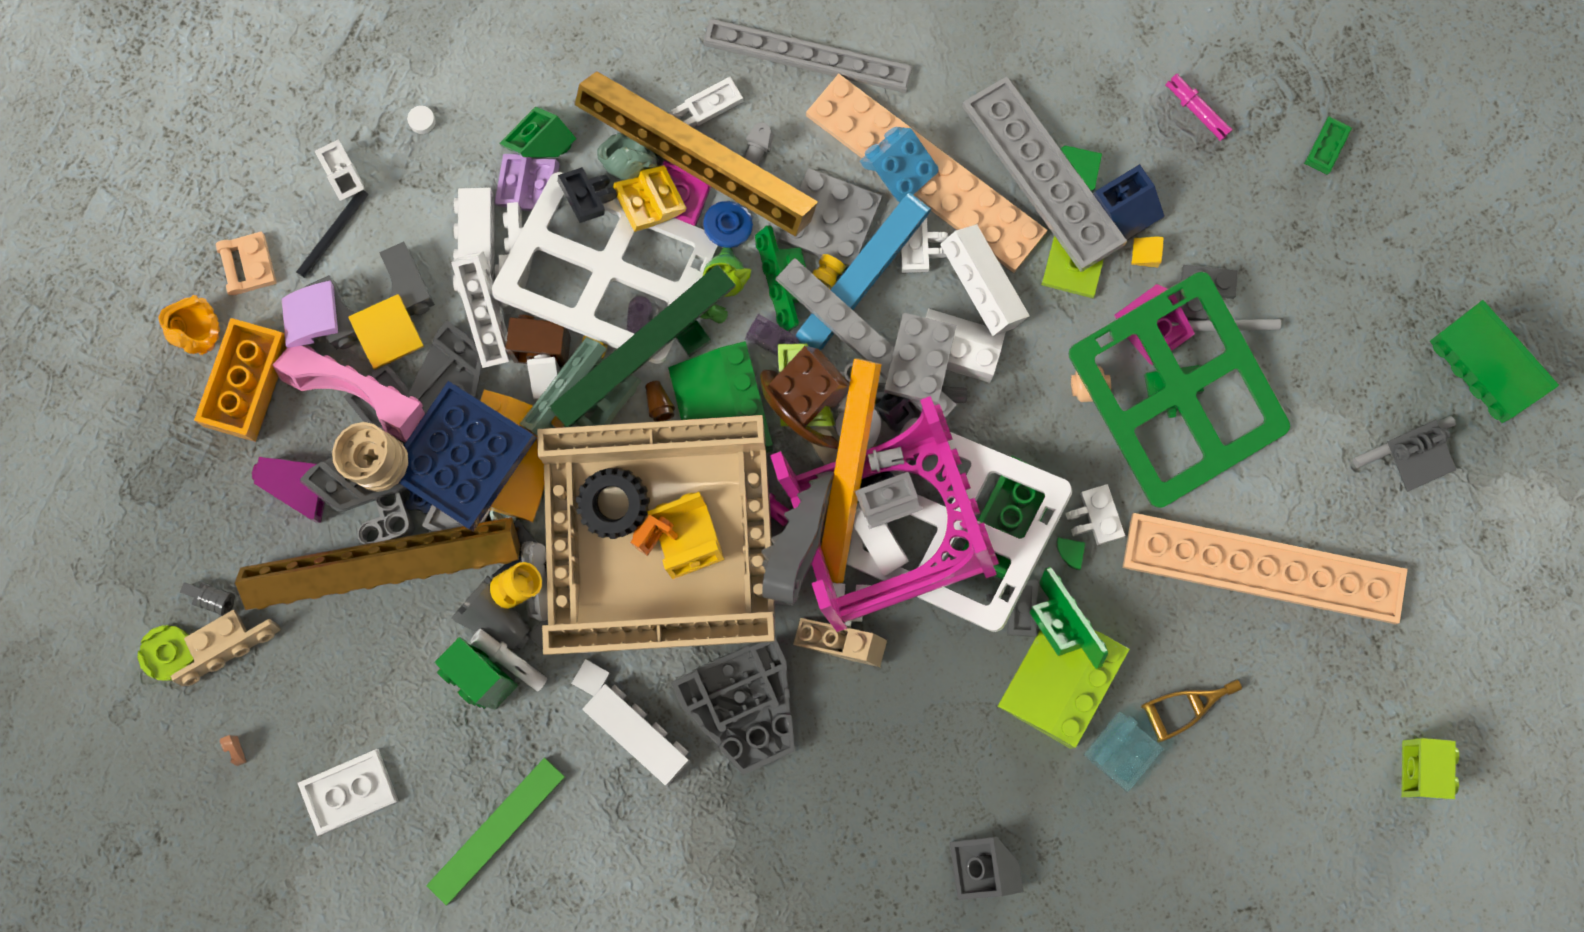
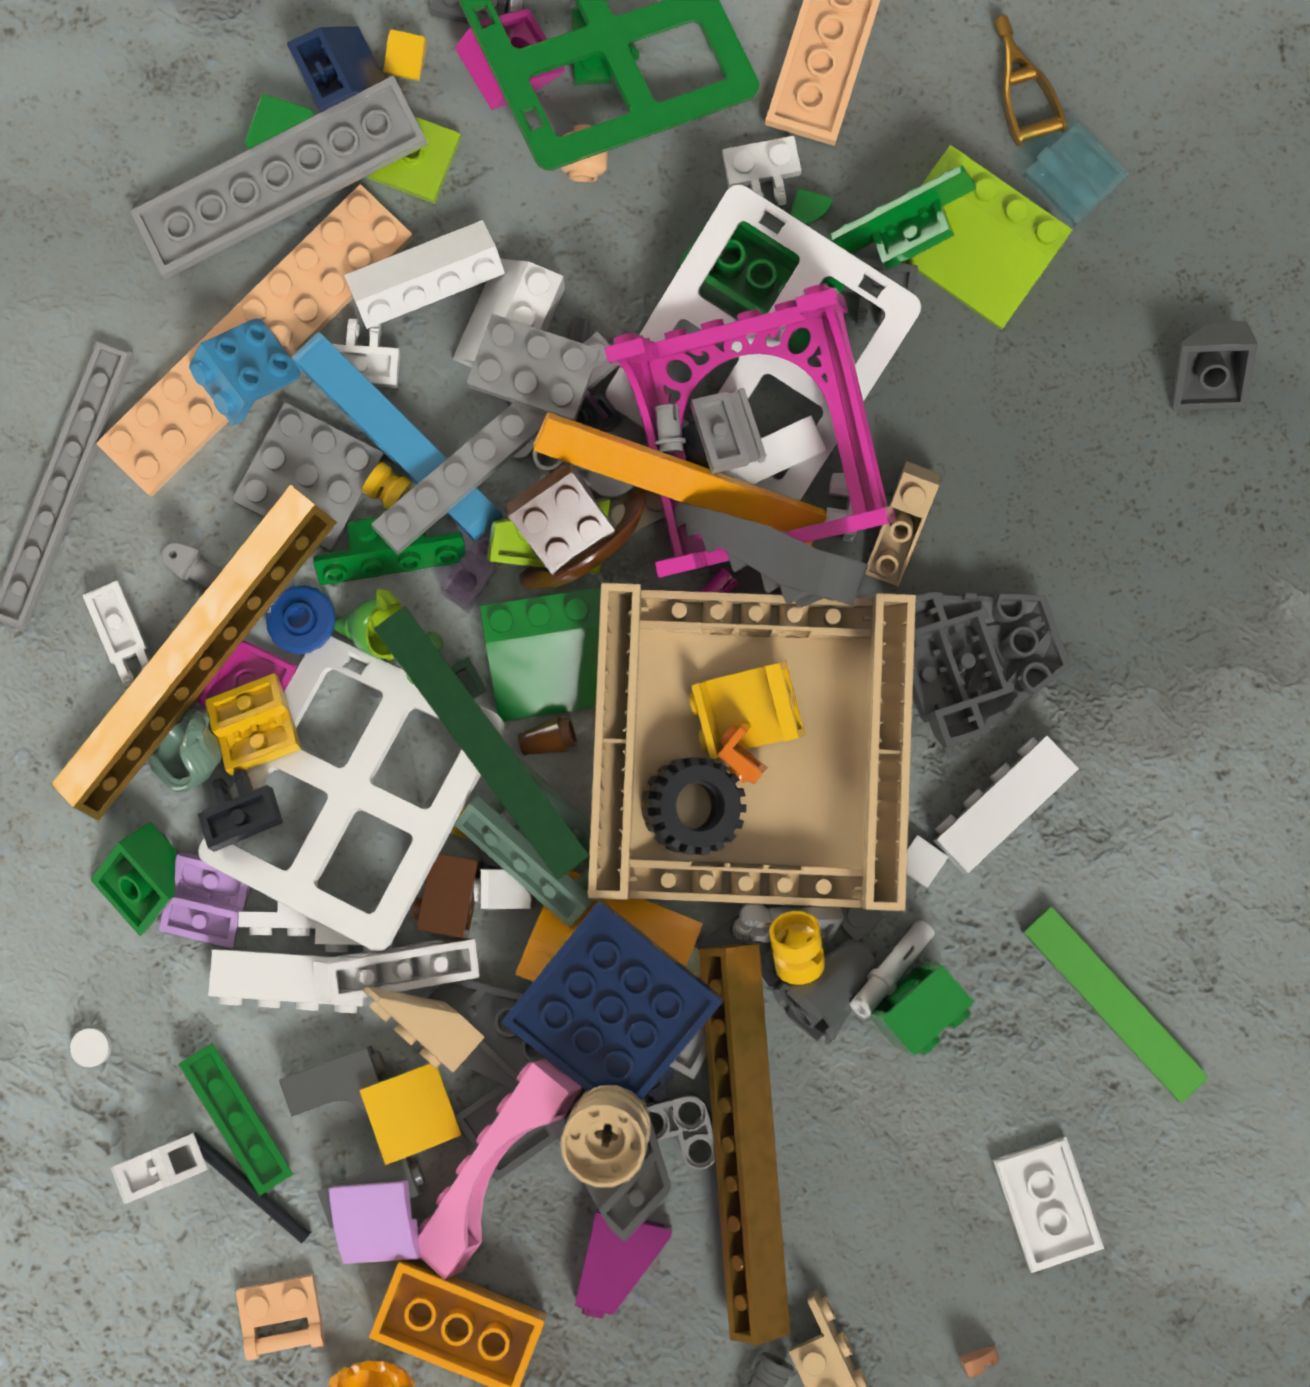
camera: 90 degrees left, 5 degrees up
(377, 218) = (235, 1119): none -> green plate
(445, 334) = (433, 1023): none -> tan slope
(639, 313) = (428, 756): clear purple leg -> none

